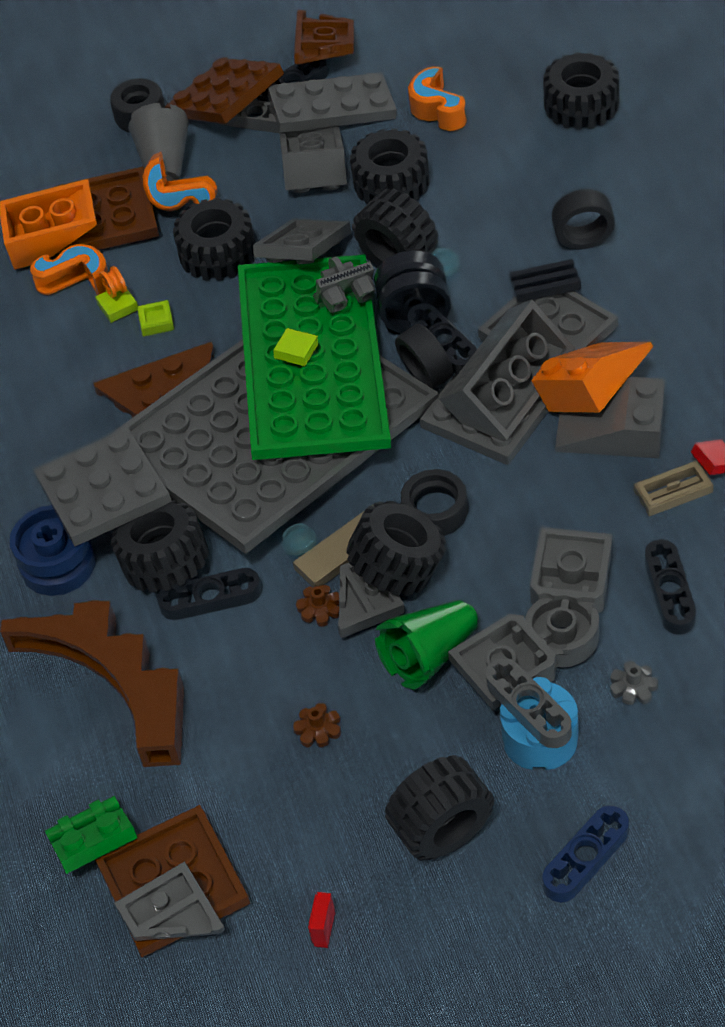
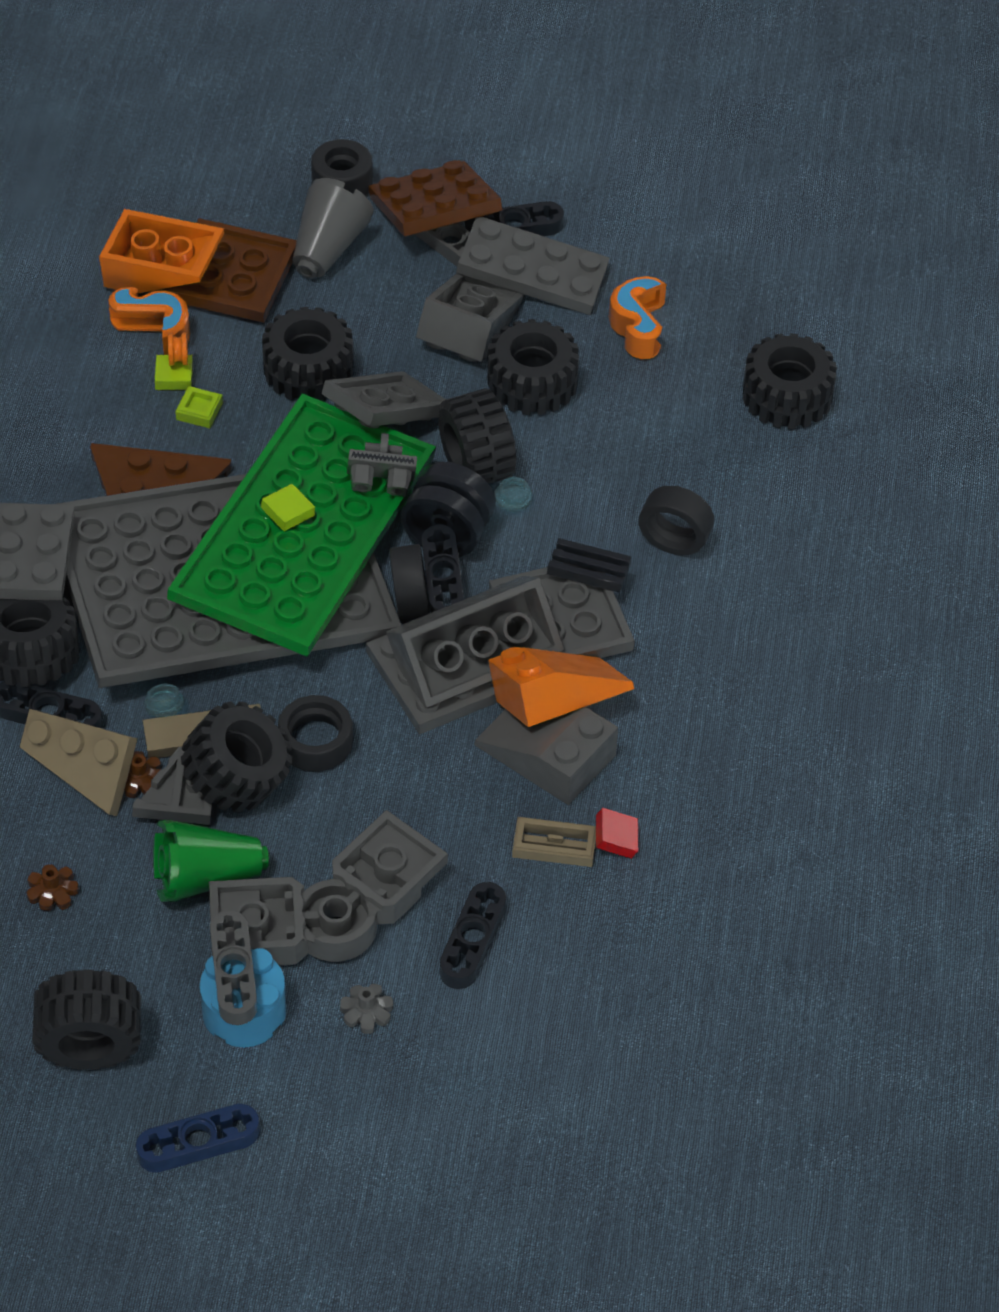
camera: 20 degrees right, 0 degrees up
(175, 193) = (304, 285): orange animal -> none
(267, 611) = (82, 756): none -> dark tan wing
(322, 37) = (574, 188): reddish brown wing -> none

